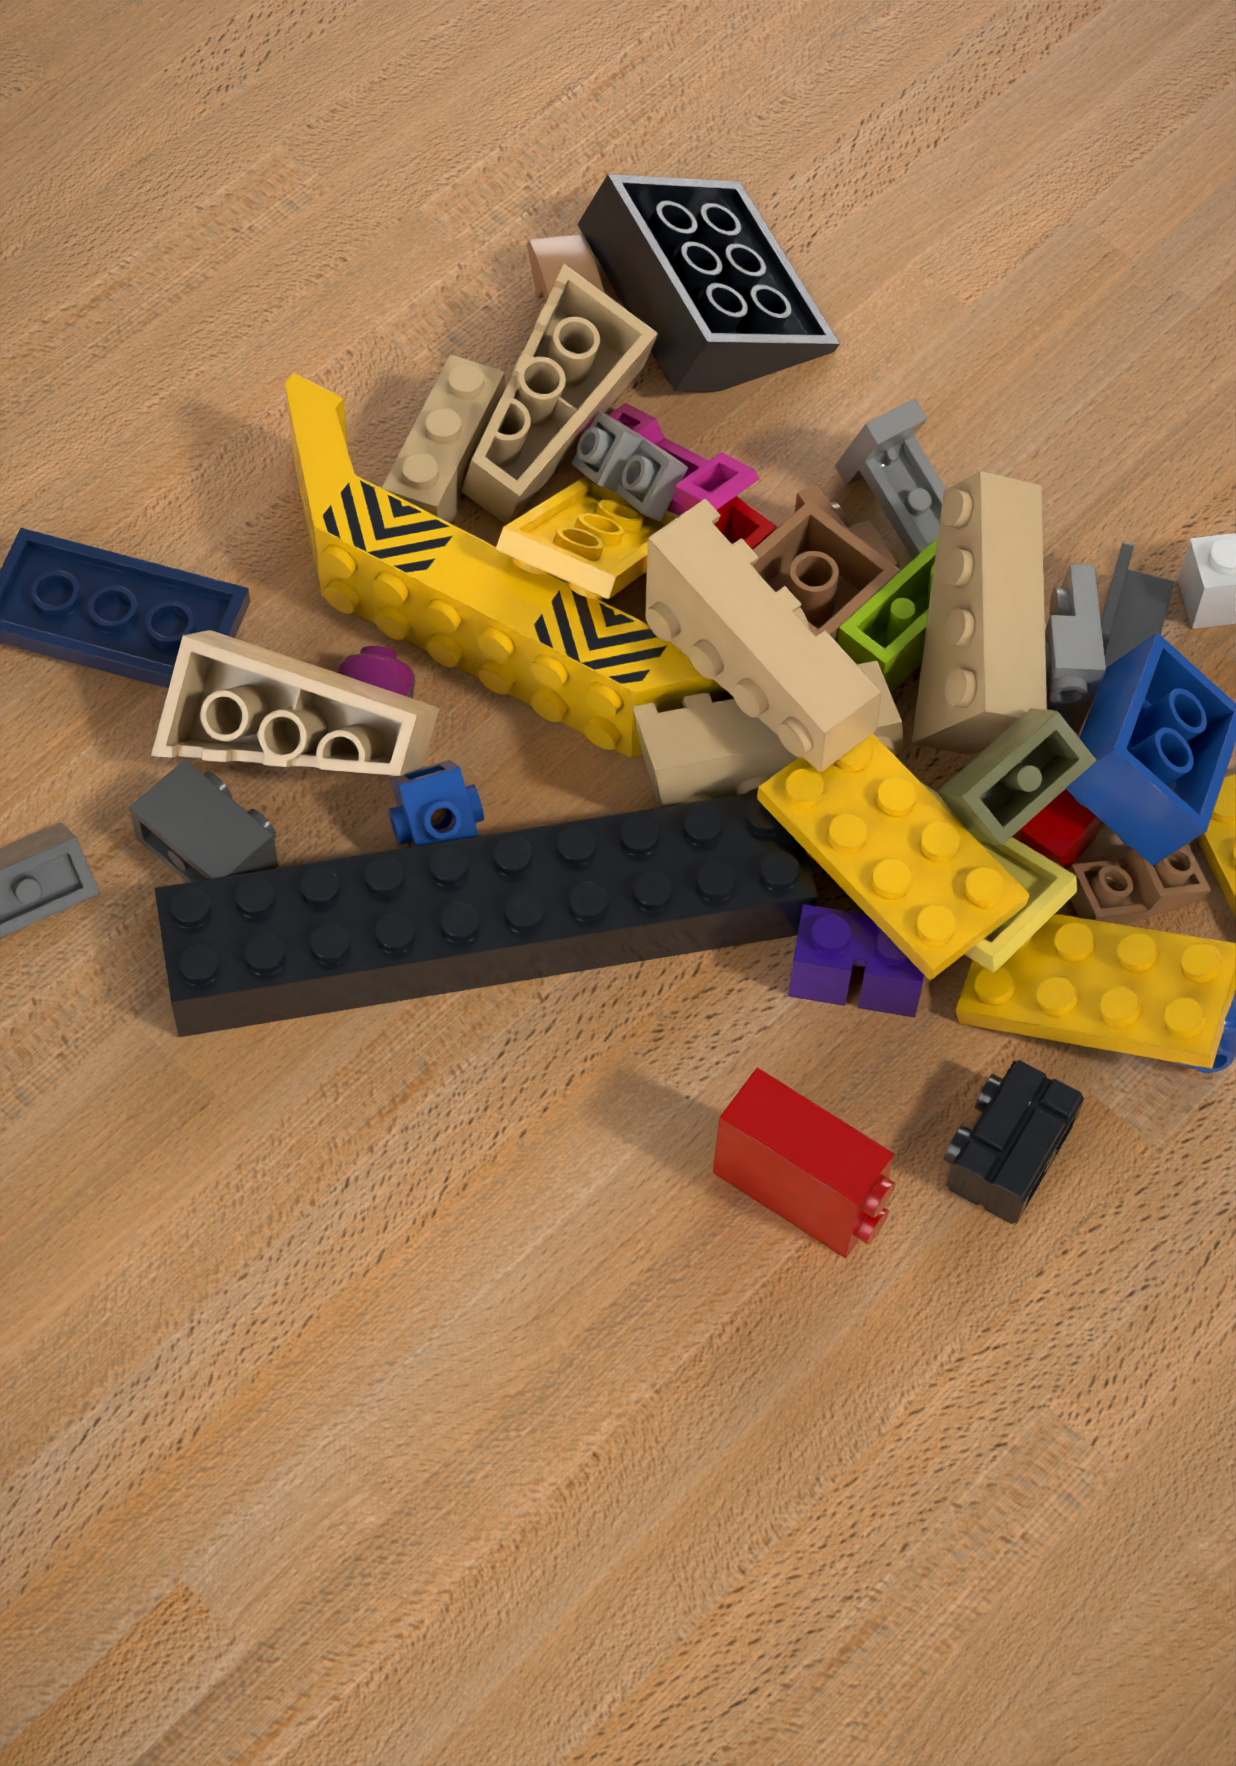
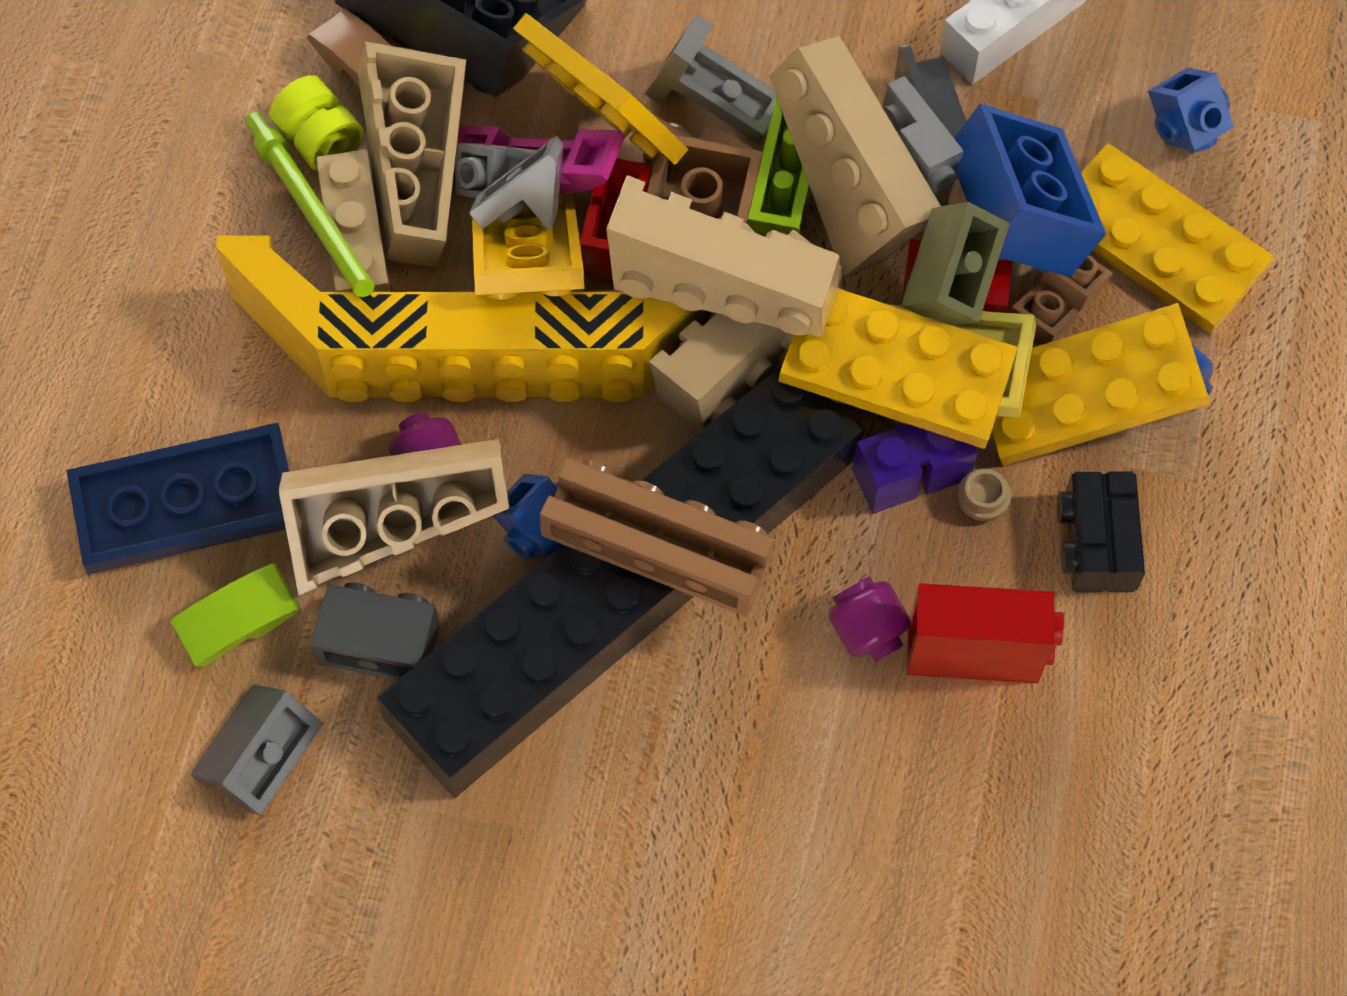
camera: 30 degrees left, 5 degrees up
(90, 743) = (235, 613): none -> lime slope
(421, 333) = (275, 151): none -> lime bar
(480, 320) = (314, 120): none -> neon yellow wheel
(526, 879) = (657, 535): none -> medium nougat brick
(636, 483) = (530, 182): none -> light grey slope
(700, 1087) = (869, 619): none -> magenta head
(766, 427) = (598, 91): none -> yellow plate
(915, 1037) = (984, 495): none -> tan plate

